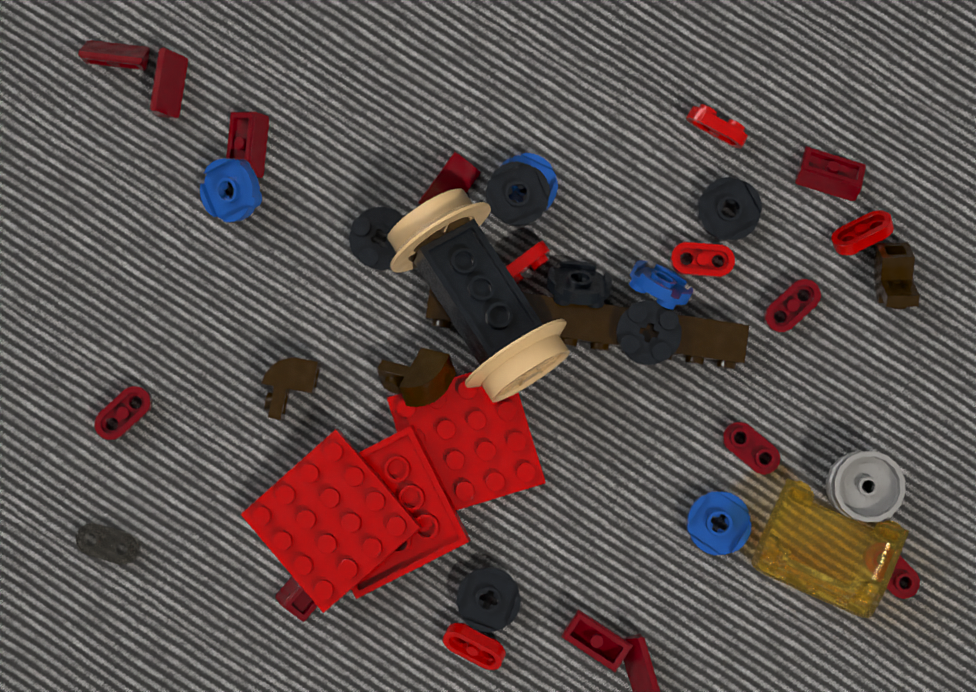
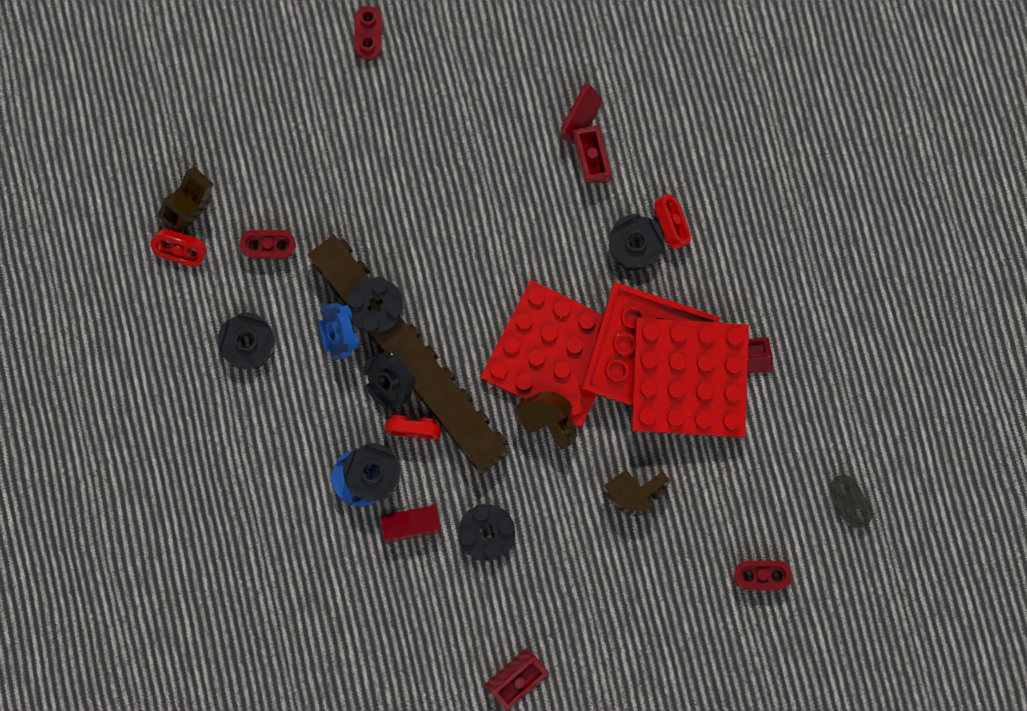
camera: 135 degrees left, 10 degrees down
(245, 185) = (540, 658): blue plate -> none
(477, 293) = (460, 423): brick -> none
(702, 259) = (295, 326): red plate -> none
(707, 121) = (197, 388): red plate -> none
(722, 541) = (437, 169): blue plate -> none
(751, 448) = (380, 182): dark red plate -> none
(828, 552) = (395, 75): clear yellow windscreen -> none
(830, 174) = (159, 304): dark red slope -> none
(884, 488) = (320, 88): light grey wheel -> none

